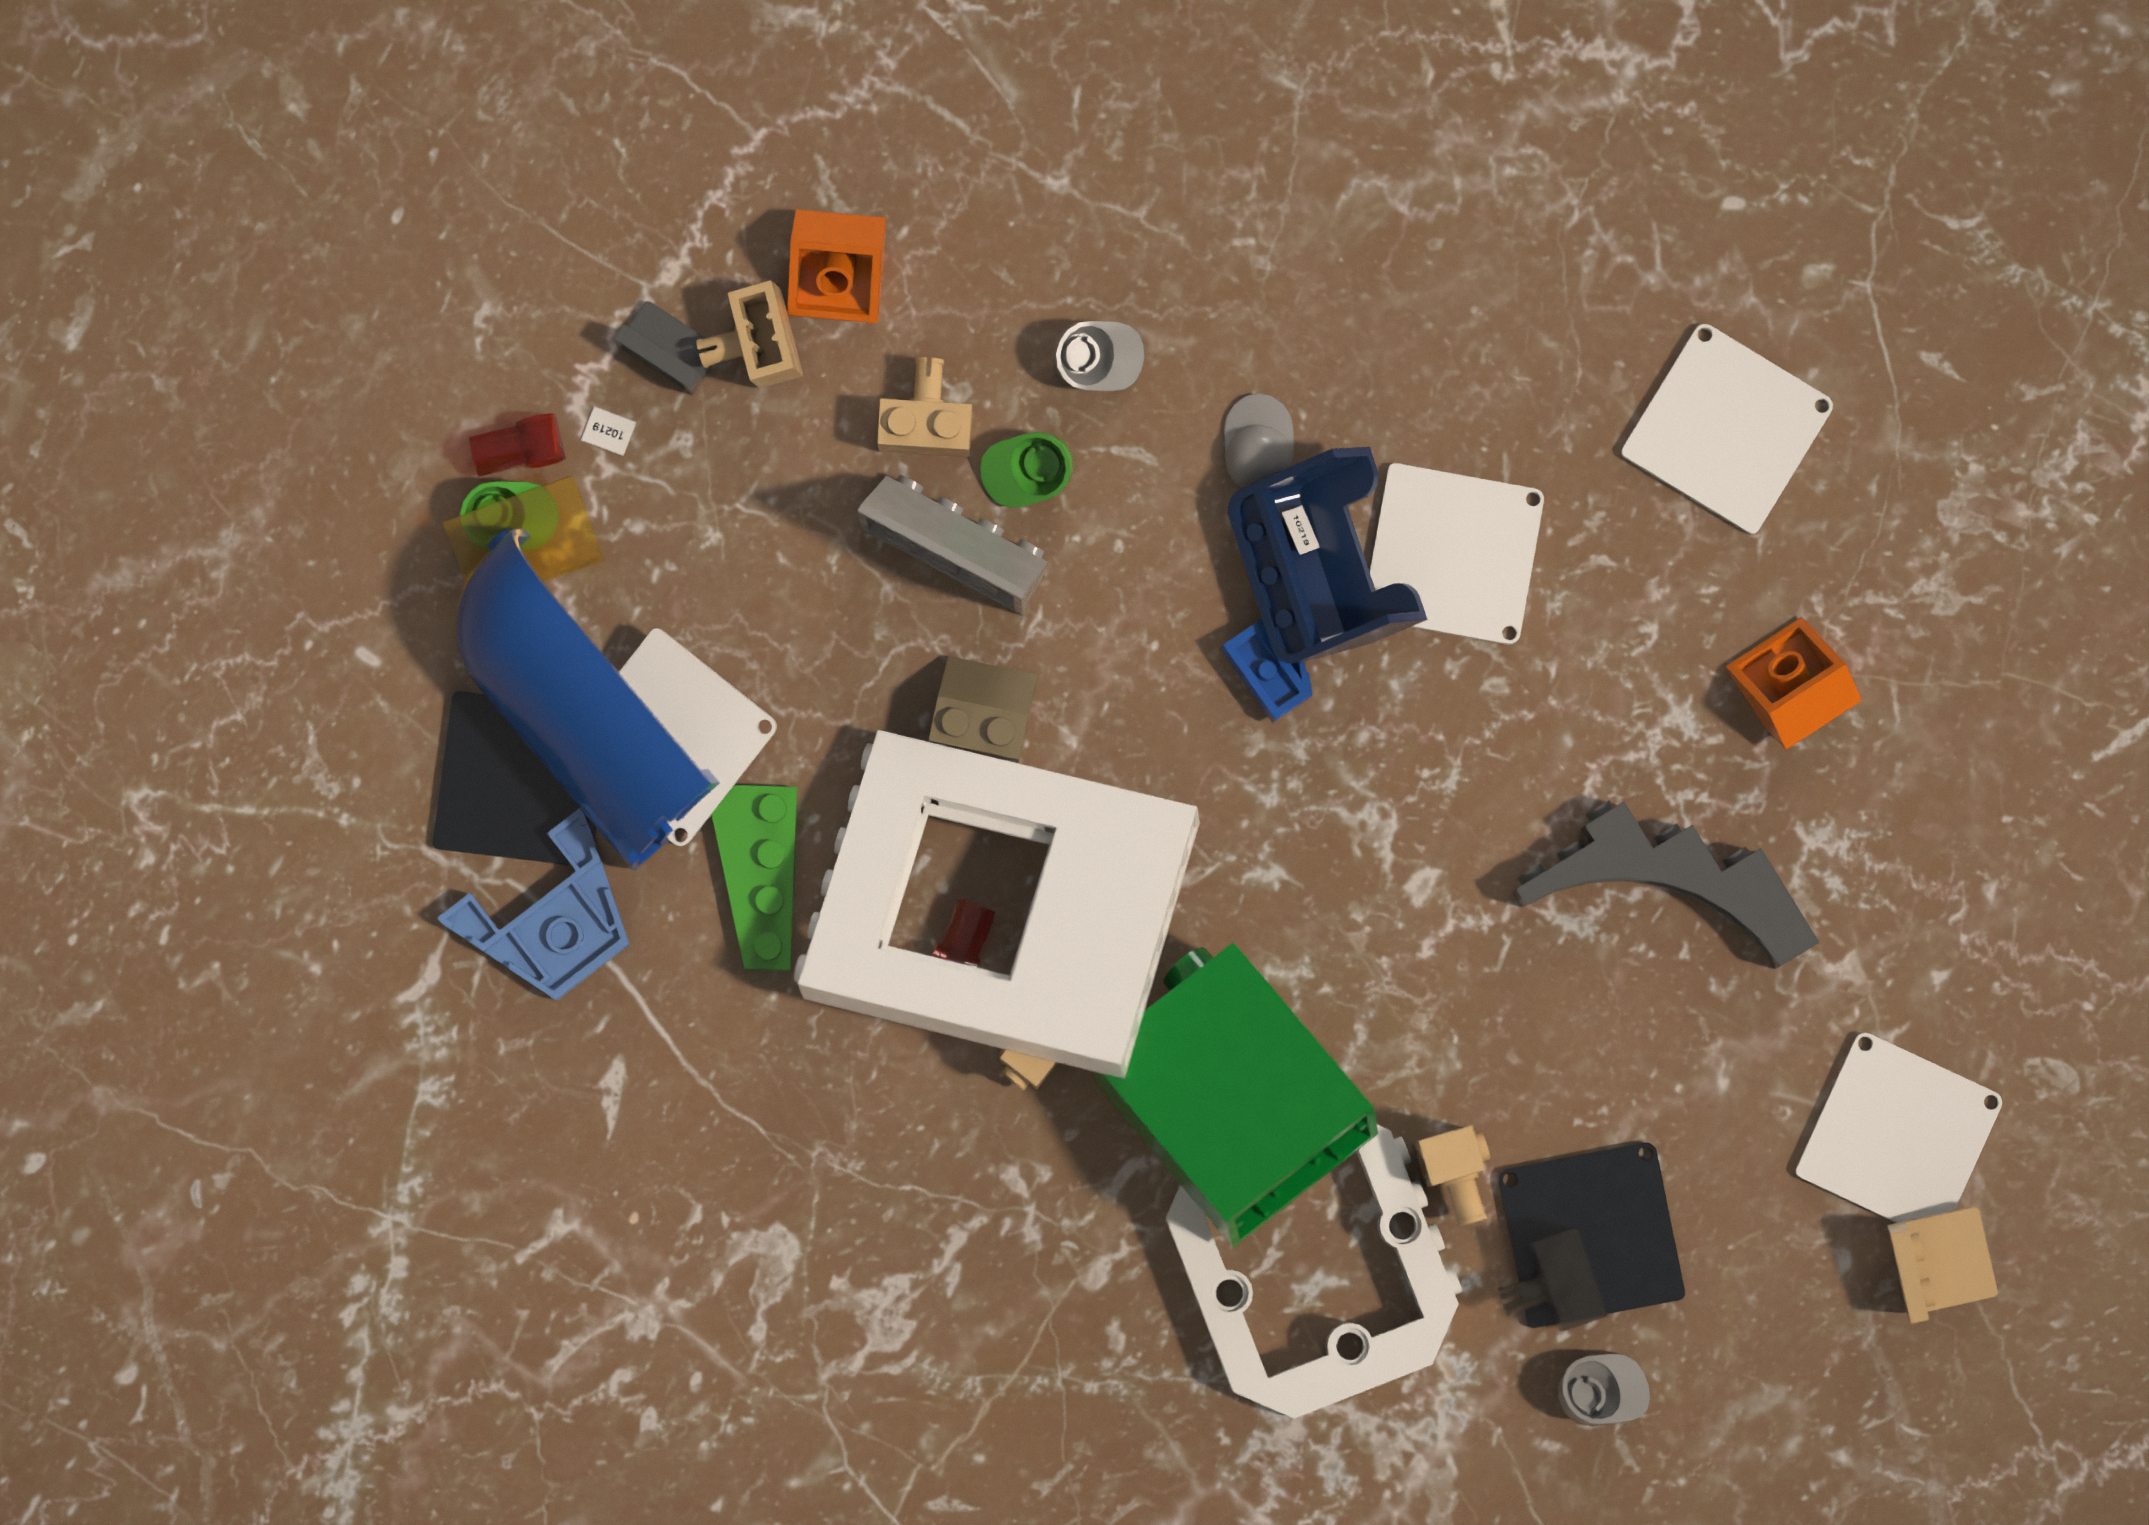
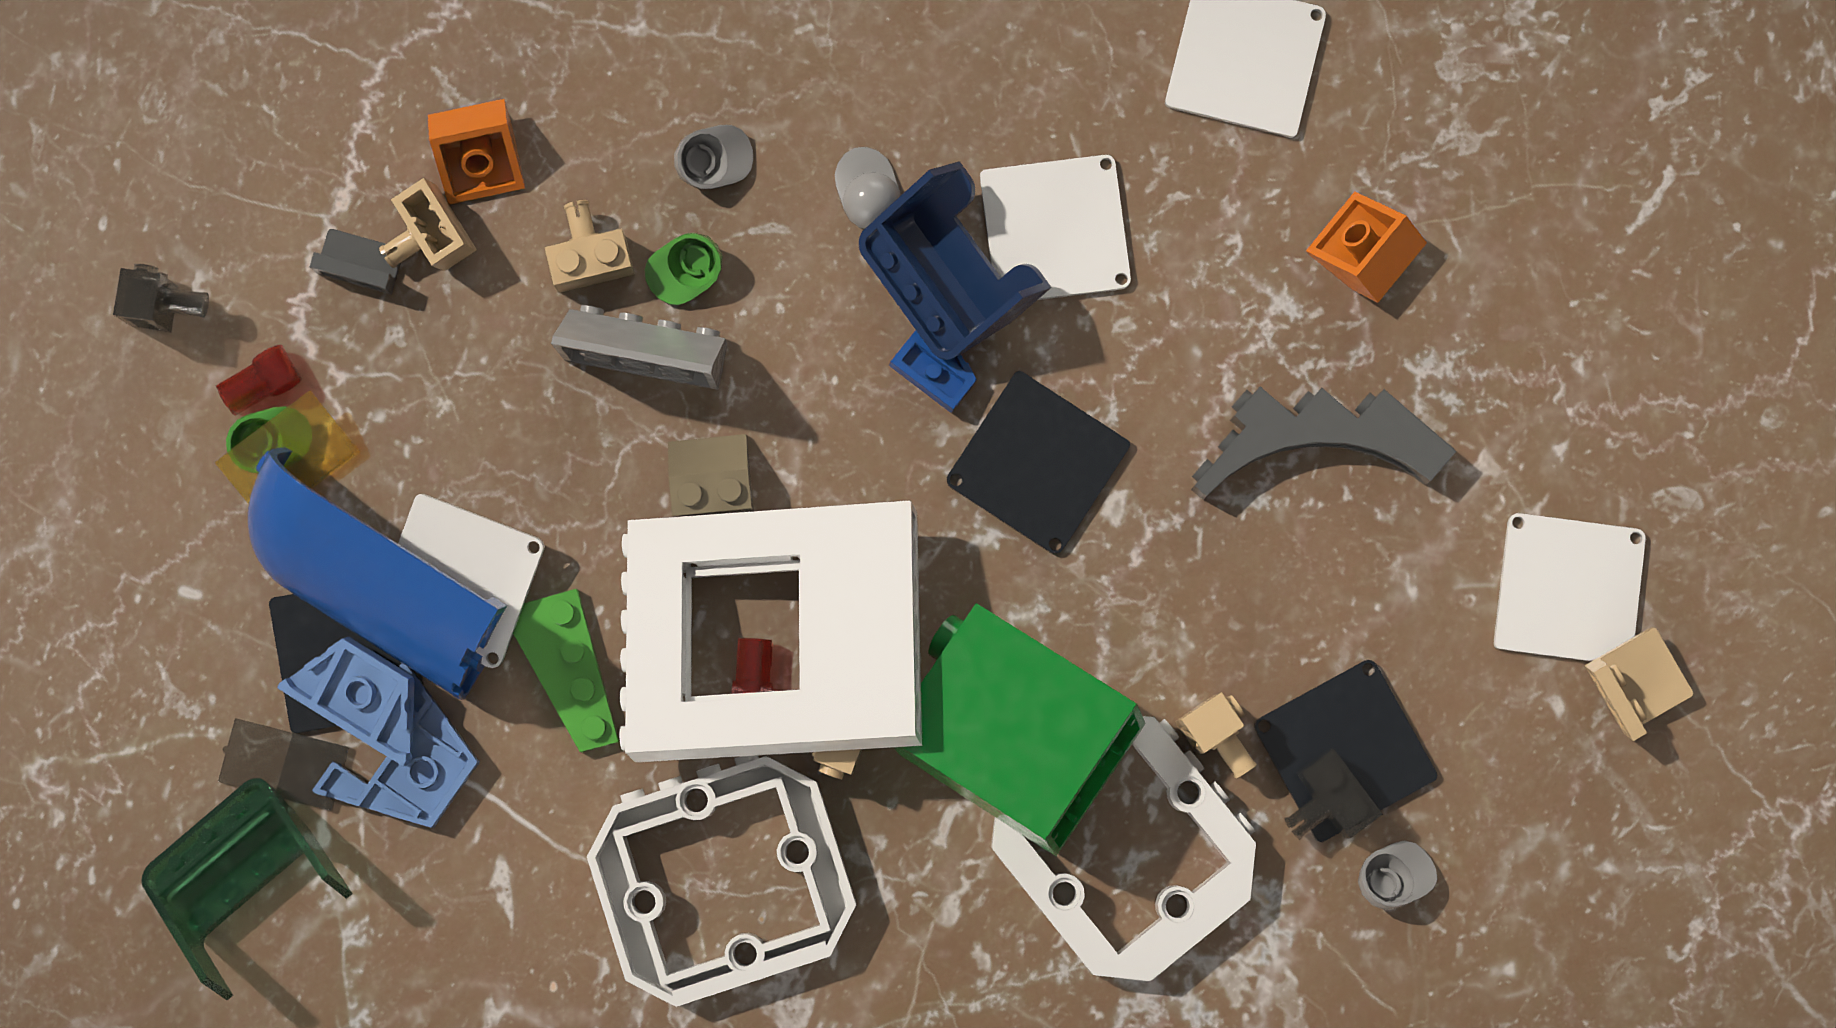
camera: 15 degrees left, 0 degrees up
(320, 968) = (225, 864): none -> clear green windscreen
(409, 875) = (282, 759): none -> clear smoke piece
(428, 318) = (150, 299): none -> clear smoke brick
(523, 830) = (360, 696): none -> medium blue wing
(608, 431) = (331, 345): white sticker -> none
(743, 1184) = (635, 931): none -> white panel
(1300, 530) = (924, 247): white sticker -> none
(1351, 808) = (1038, 462): none -> black piece

